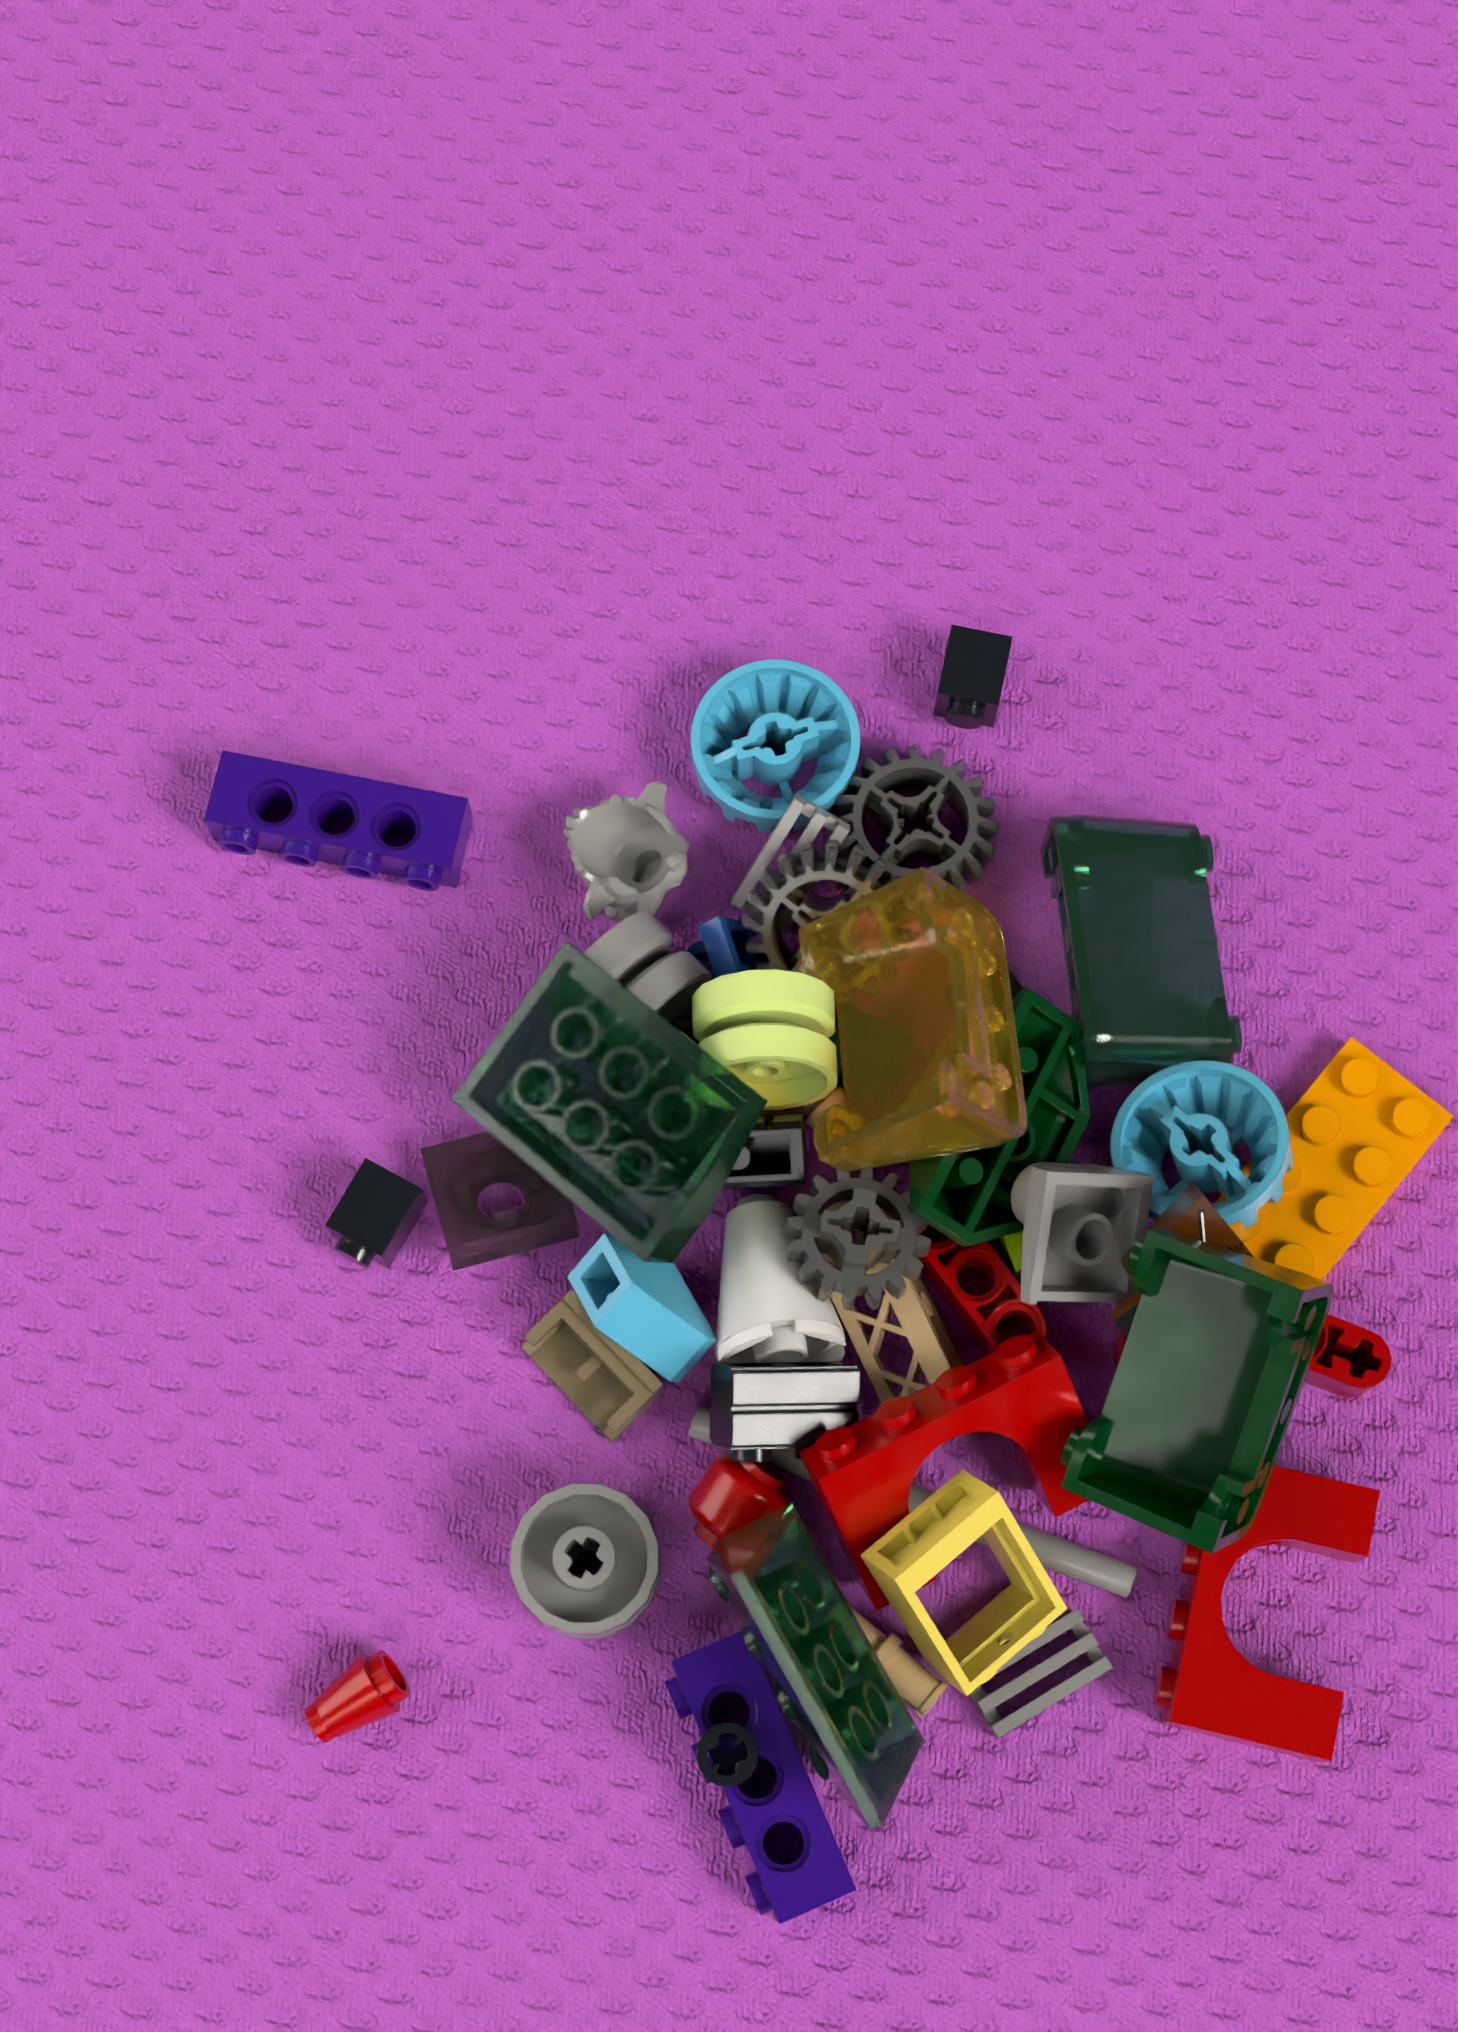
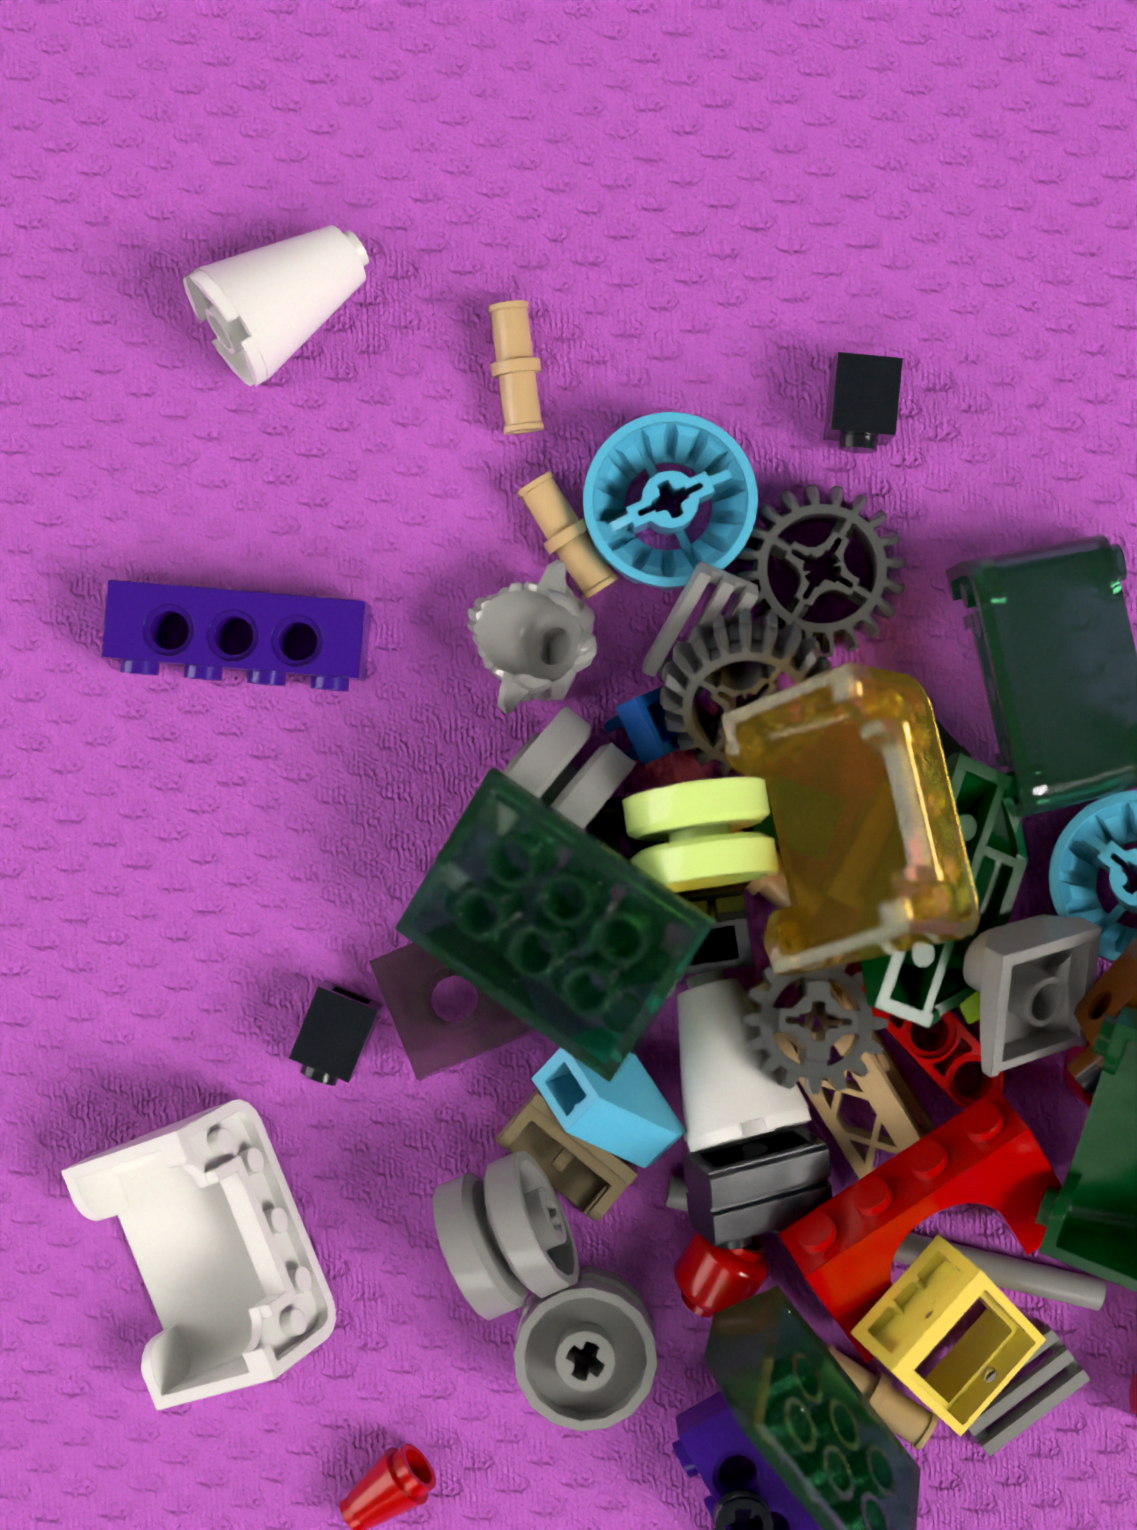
camera: 10 degrees left, 15 degrees up
(212, 1412) = (214, 1250): none -> white windscreen
(422, 520) = (275, 297): none -> white cone
(519, 1424) = (505, 1235): none -> light grey wheel
(643, 612) = (515, 367): none -> tan pin
(672, 767) = (566, 535): none -> tan pin

